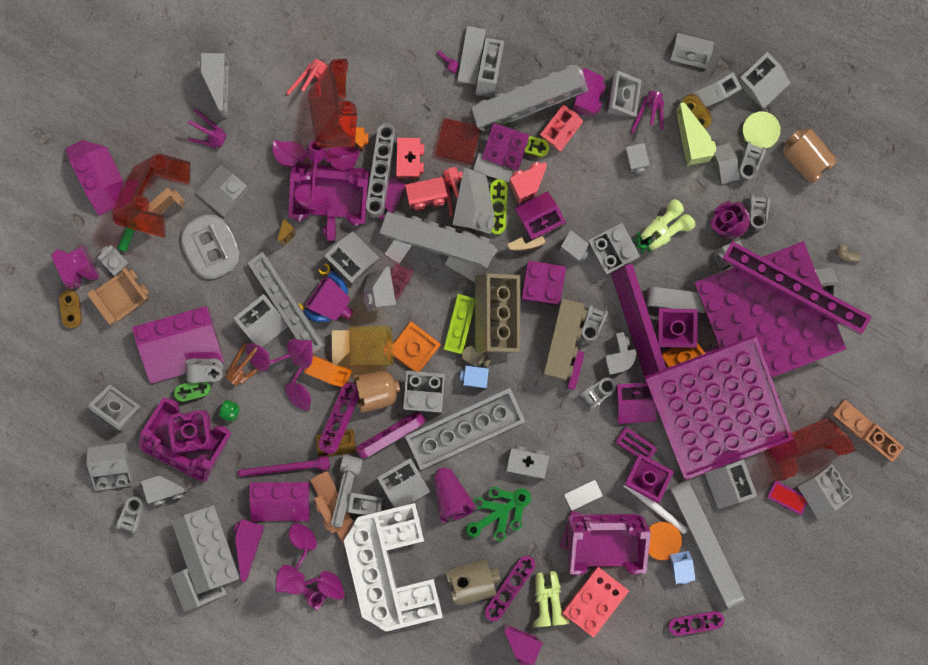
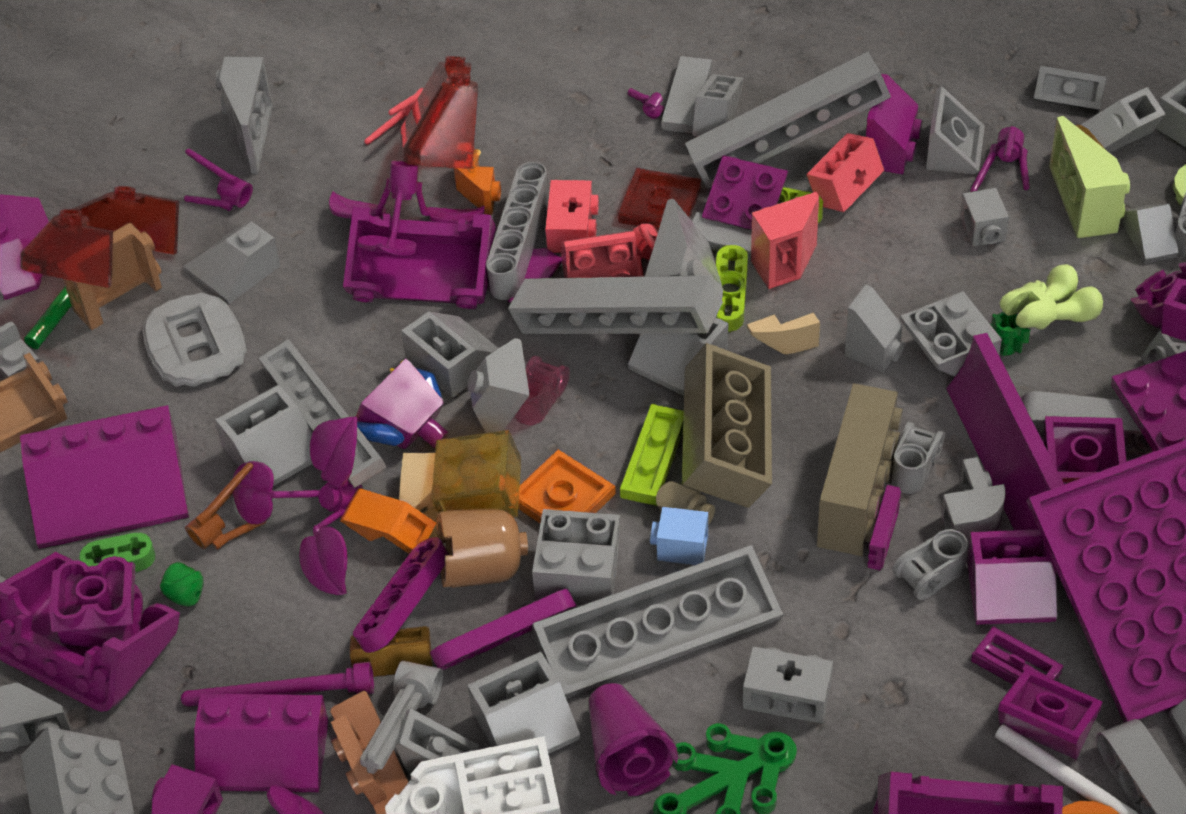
camera: 10 degrees right, 35 degrees down
(202, 370) = (139, 513): light grey piece -> none
(286, 233) = (335, 305): pearl gold slope -> none
(330, 229) = (420, 298): magenta plate -> none
(397, 250) = (547, 346): white sticker -> none
(540, 216) = (819, 290): magenta slope -> none
(543, 283) = (814, 389): magenta brick -> none
(583, 495) = (910, 753): white sticker -> none

